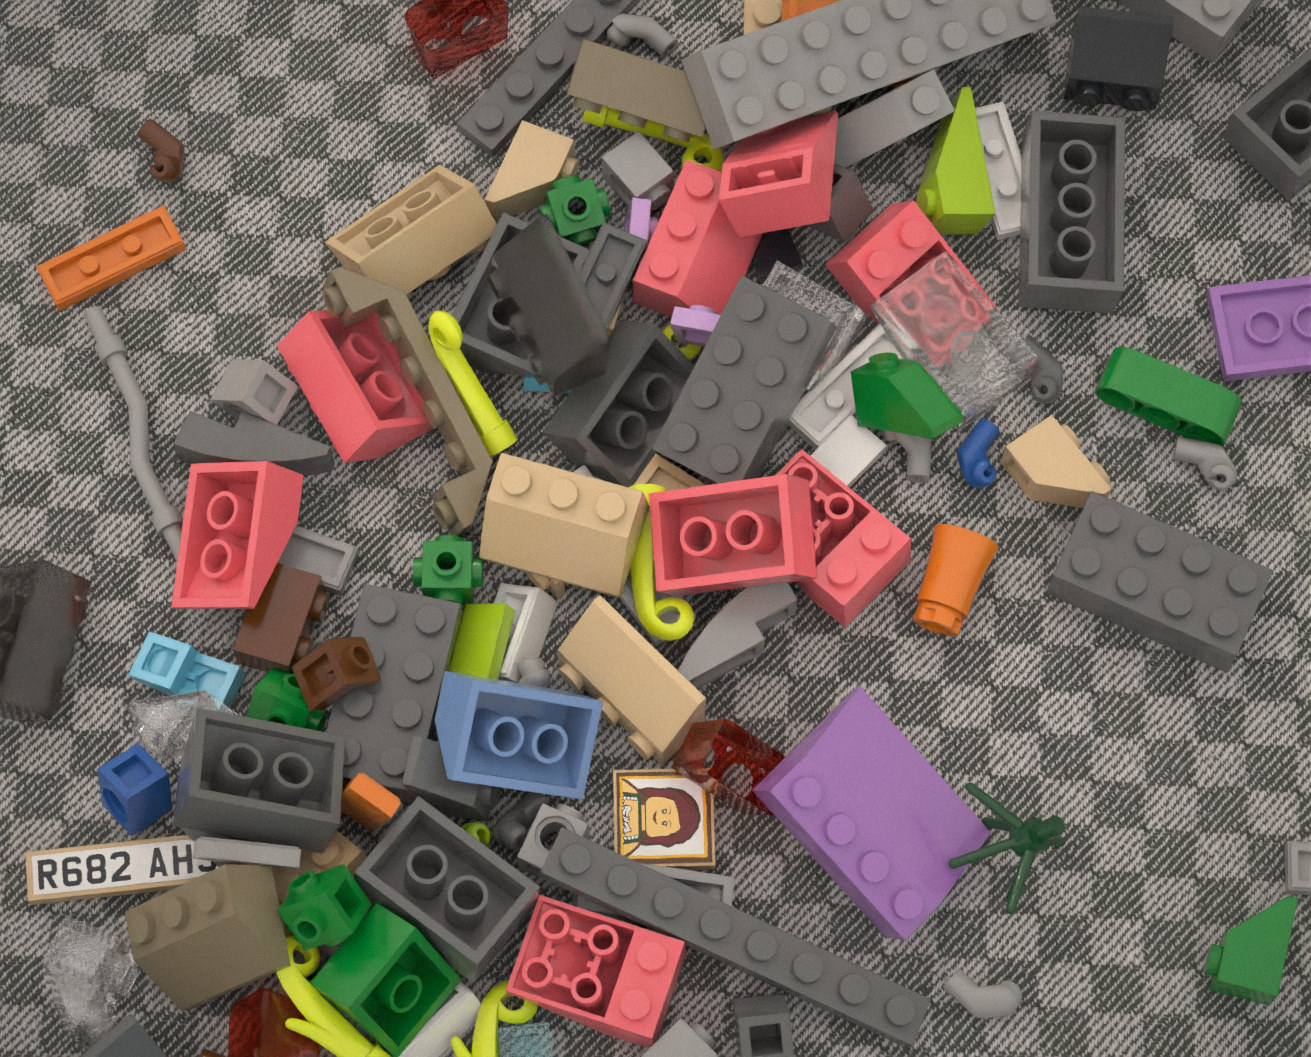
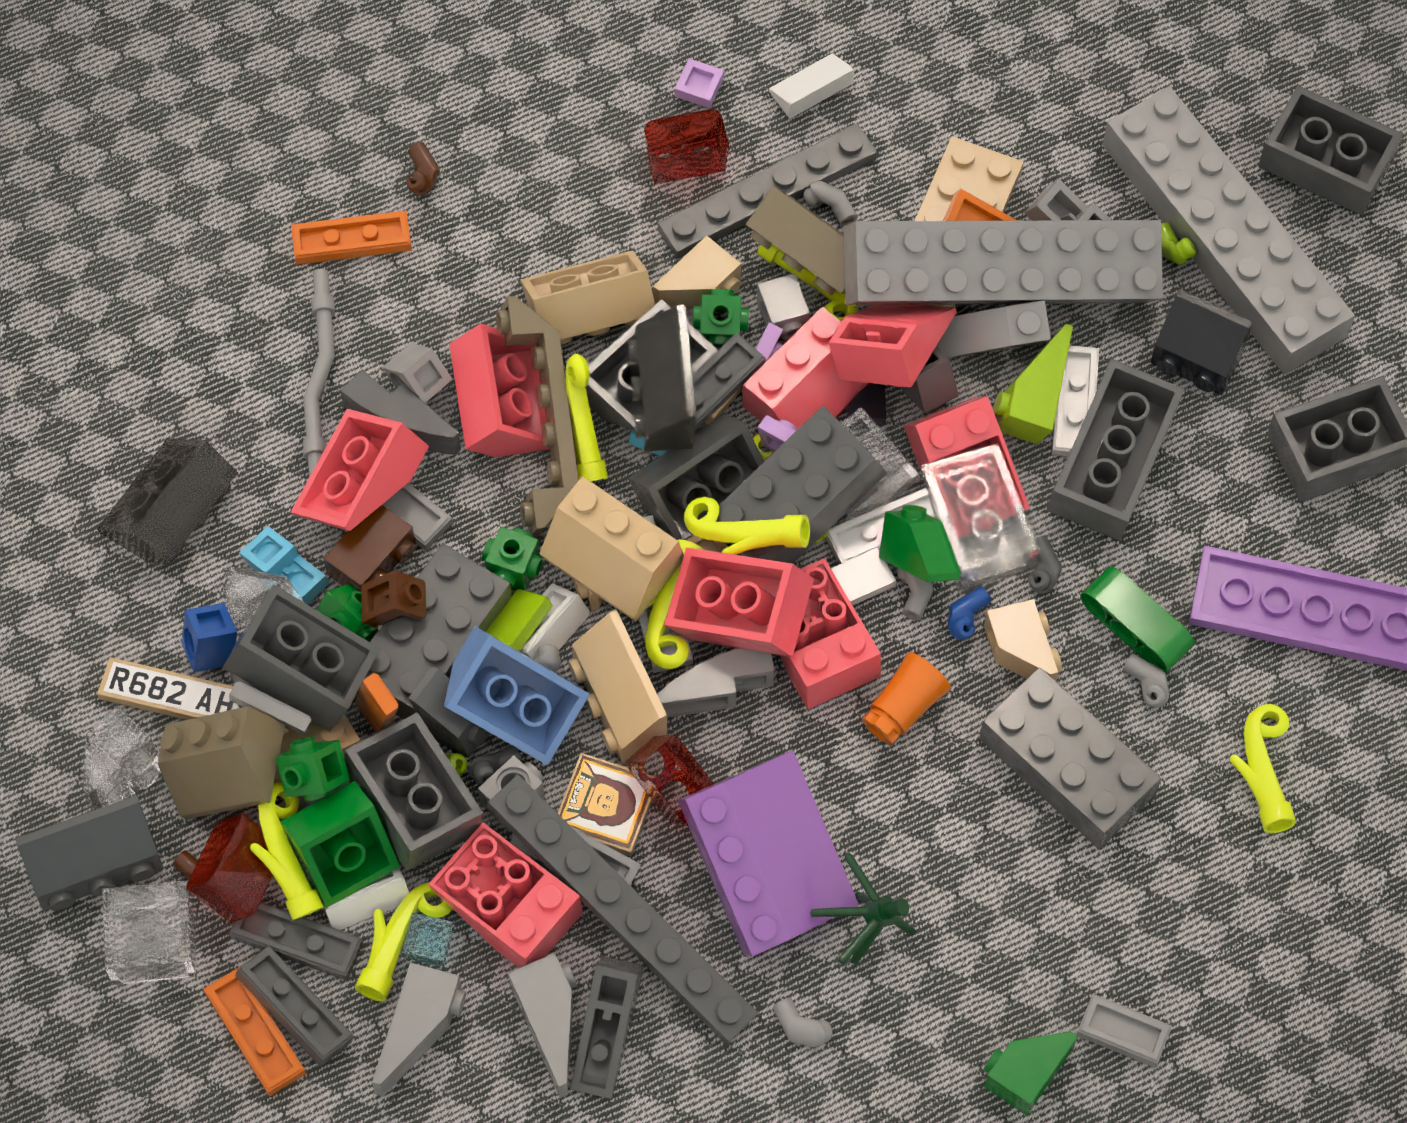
camera: 20 degrees right, 5 degrees down
(713, 454) = (790, 531): none -> neon yellow plant

